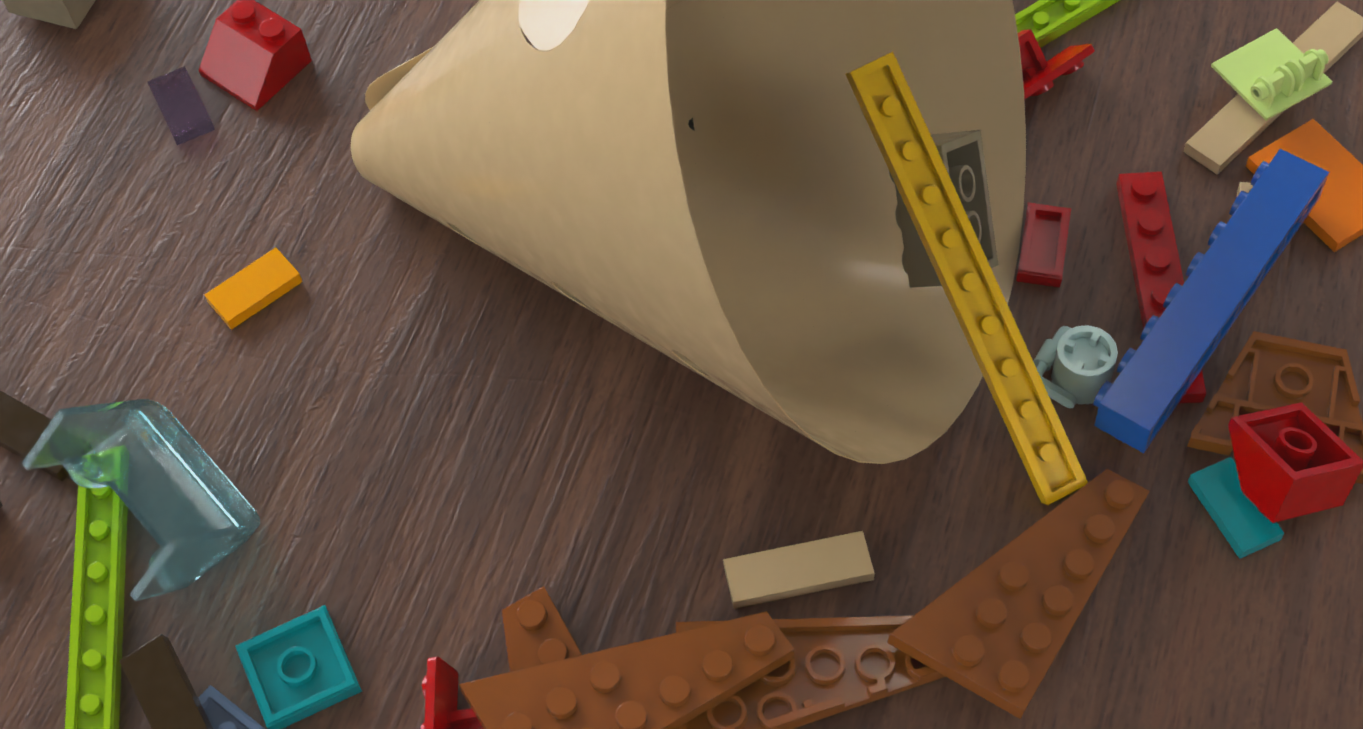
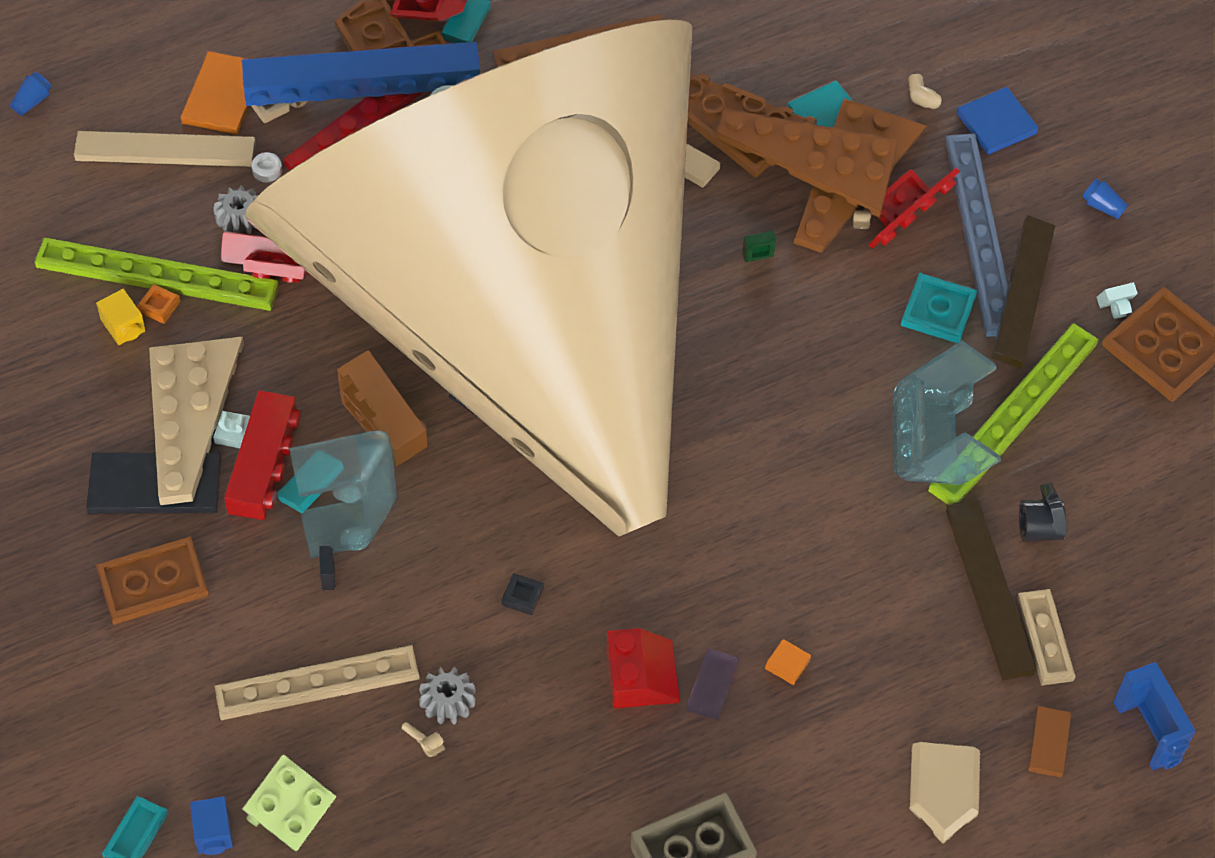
camera: 140 degrees left, 0 degrees up
(125, 175) = (788, 662): none -> orange tile
(253, 288) = (782, 519): light orange tile -> none
(428, 29) = (522, 594): none -> black tile
(571, 534) = (759, 246): none -> dark green tile
(1117, 86) = (231, 210): none -> light grey gear
(1168, 156) = (267, 167): none -> white tile
(1273, 73) = (167, 144): yellowish green hinge -> none

